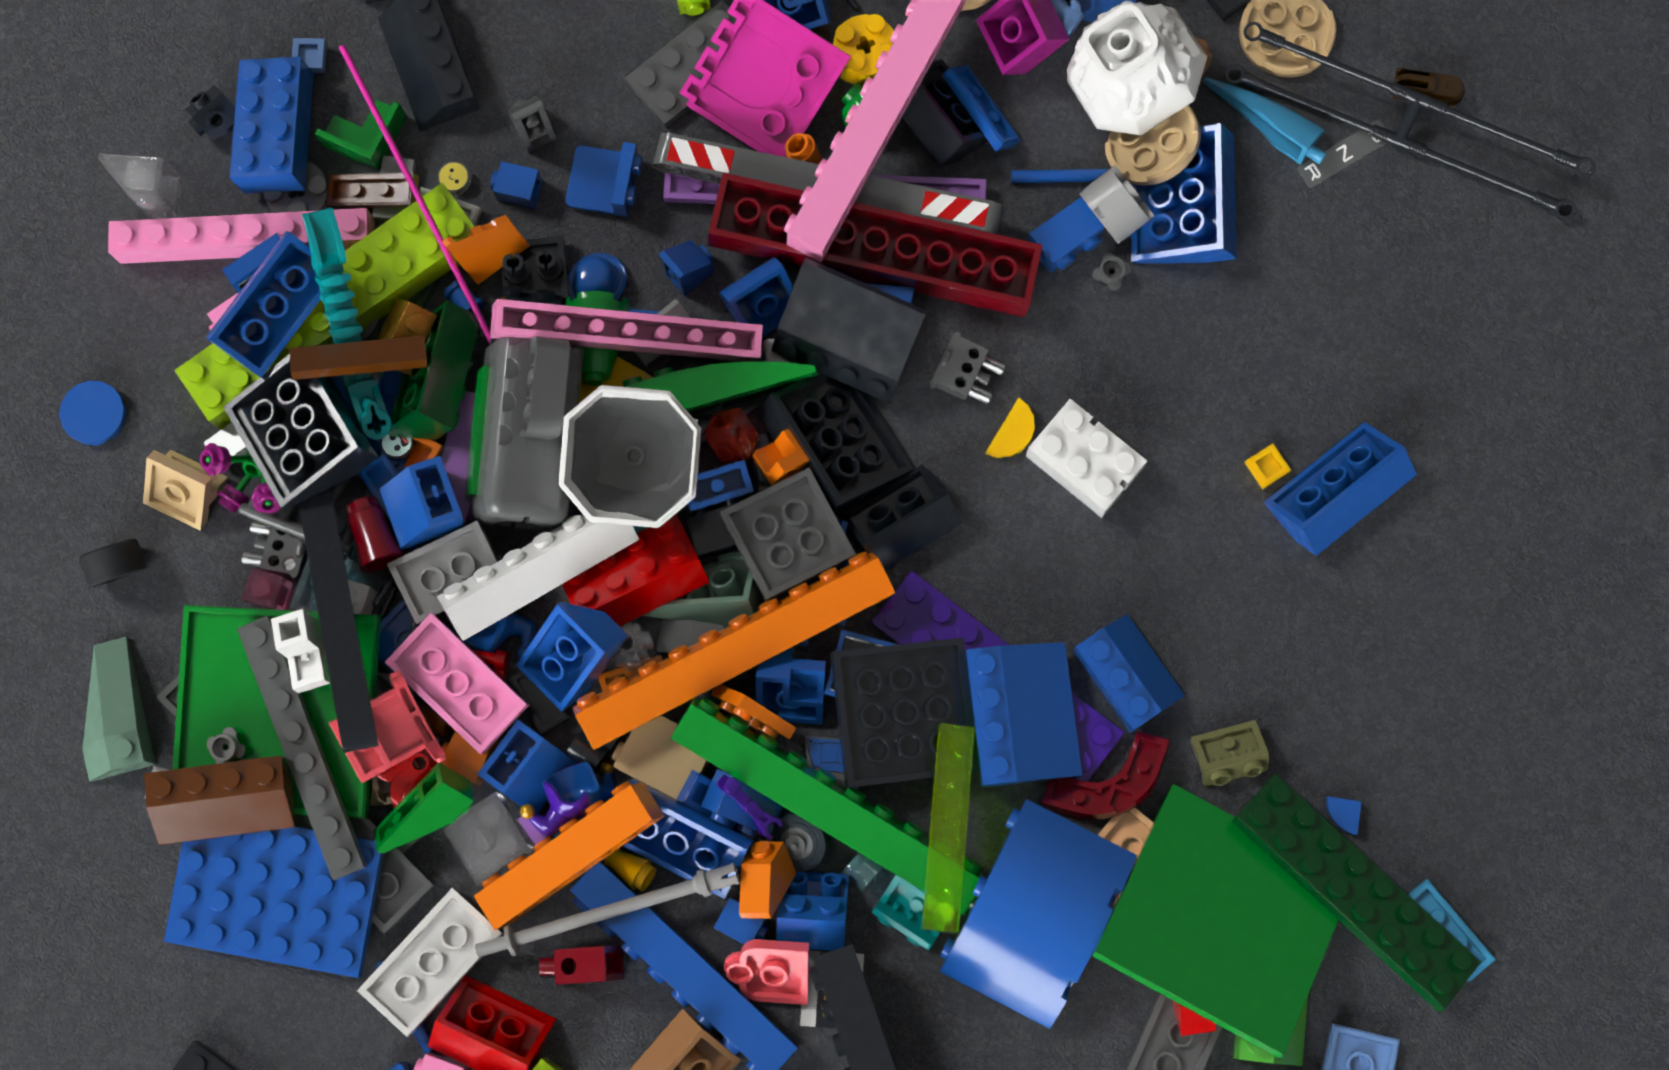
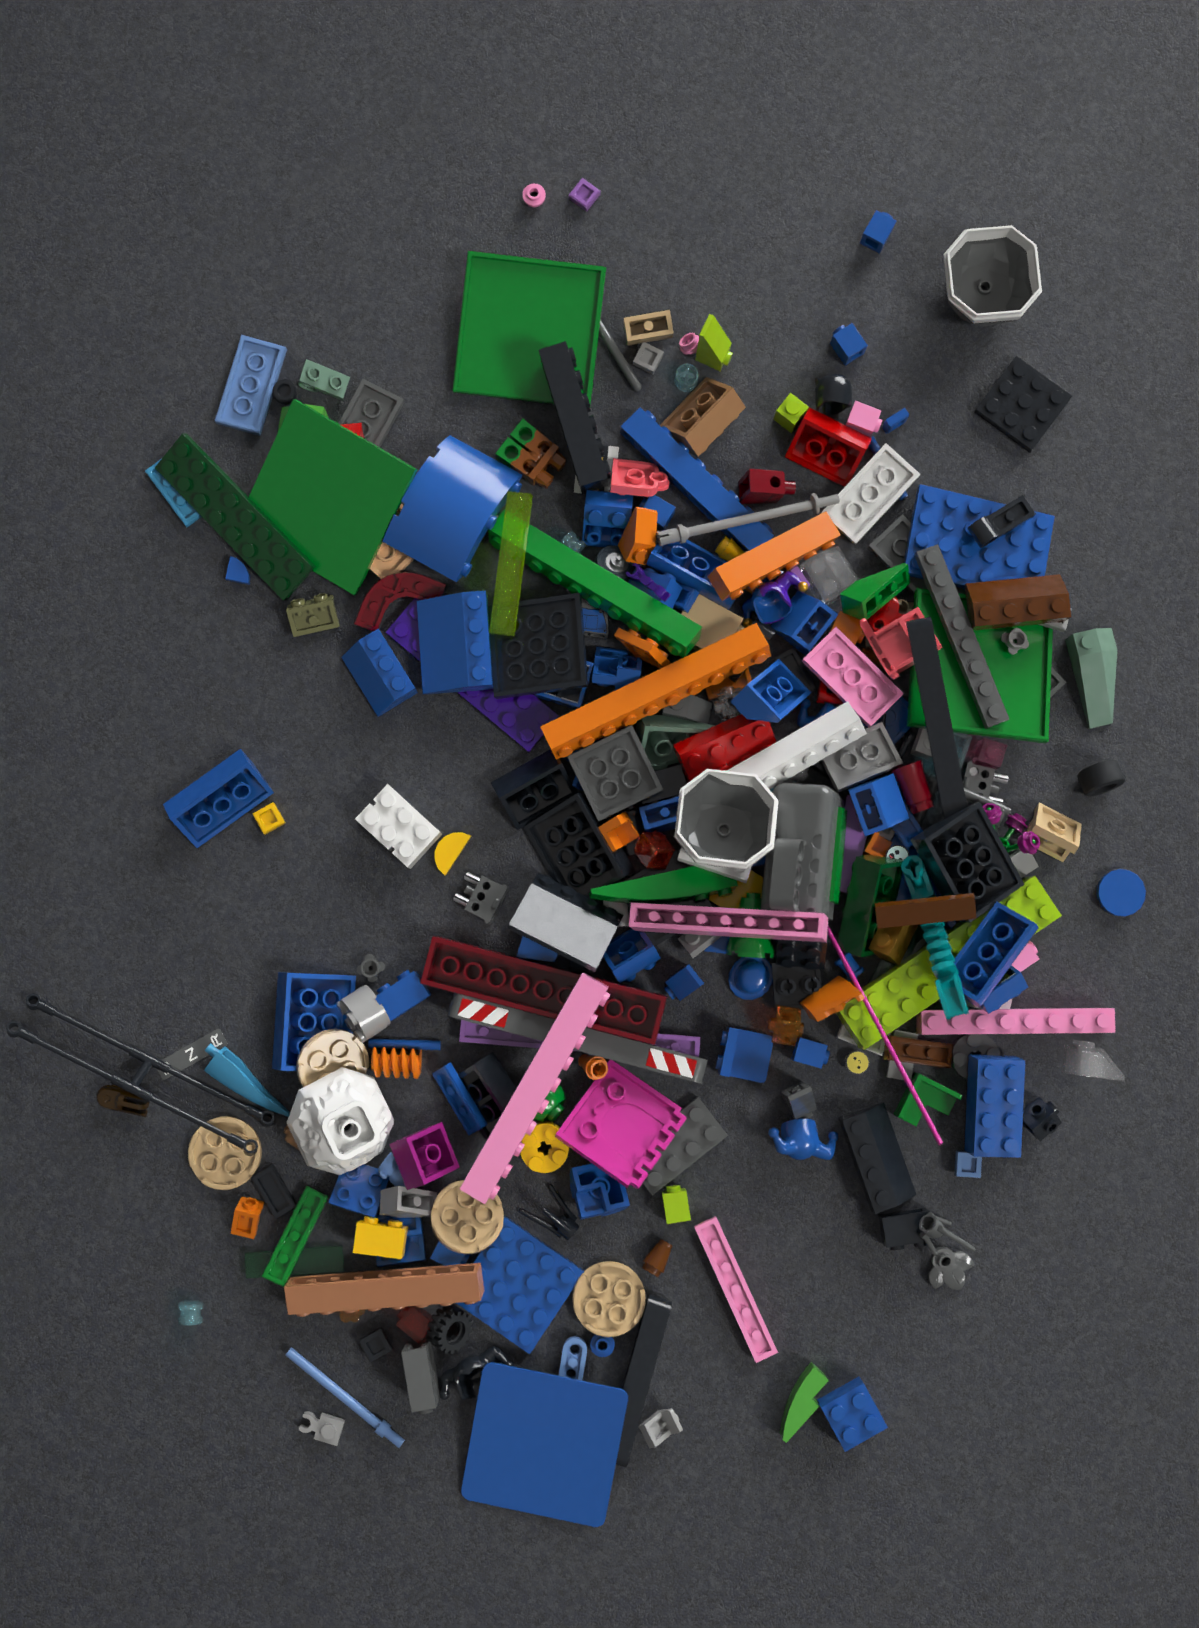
camera: 175 degrees right, 5 degrees up
(240, 920) = (1001, 521): none -> black plate
(301, 641) = (962, 704): white brick -> none
(526, 71) = (801, 1140): none -> blue piece
(548, 215) = (786, 1025): none -> clear orange brick
(903, 909) = (545, 514): teal bracket -> none
(918, 999) = (530, 454): none -> dark orange hips
(1068, 148) = (396, 1063): none -> orange piece

